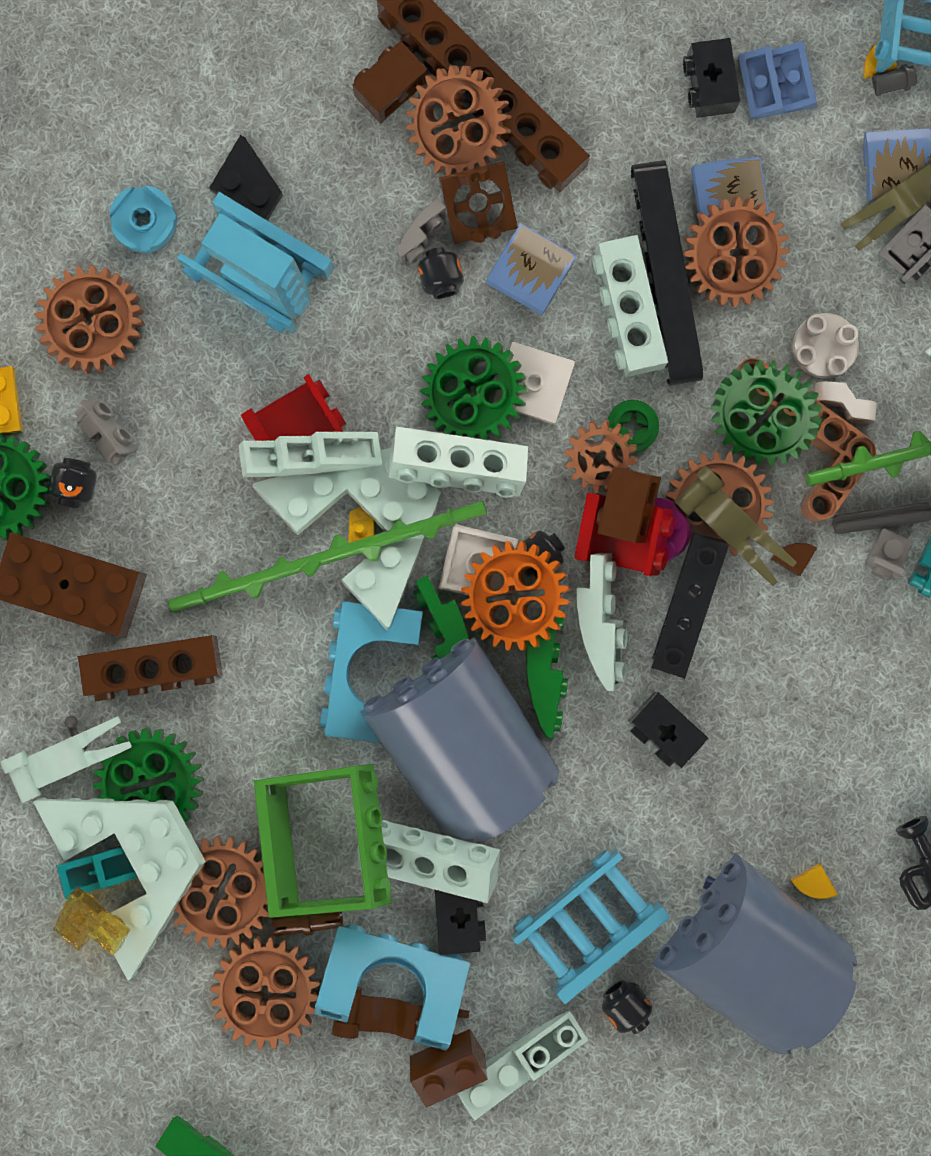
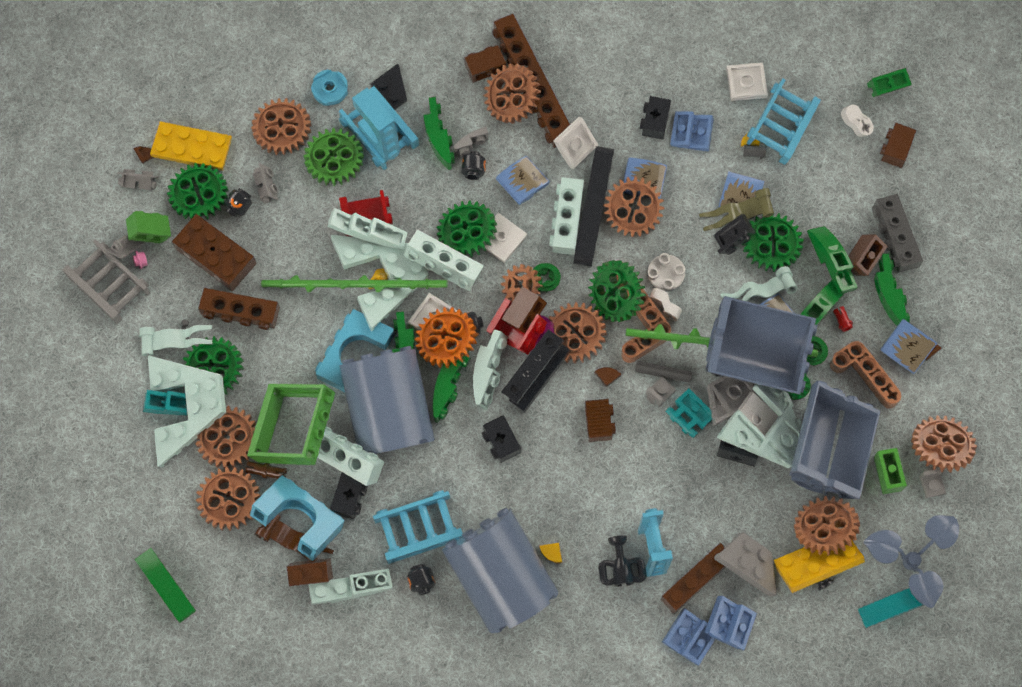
camera: 25 degrees right, 15 degrees down
(86, 918) = (151, 422): clear yellow plate -> none
(172, 331) = (345, 166): none -> bright green gear
(364, 247) = (437, 135): none -> green slope
(506, 221) = (494, 150): reddish brown piece -> none
(598, 172) = (575, 142): none -> white plate
(730, 521) = (576, 339): olive flag -> none
(811, 639) = (599, 420): none -> reddish brown brick

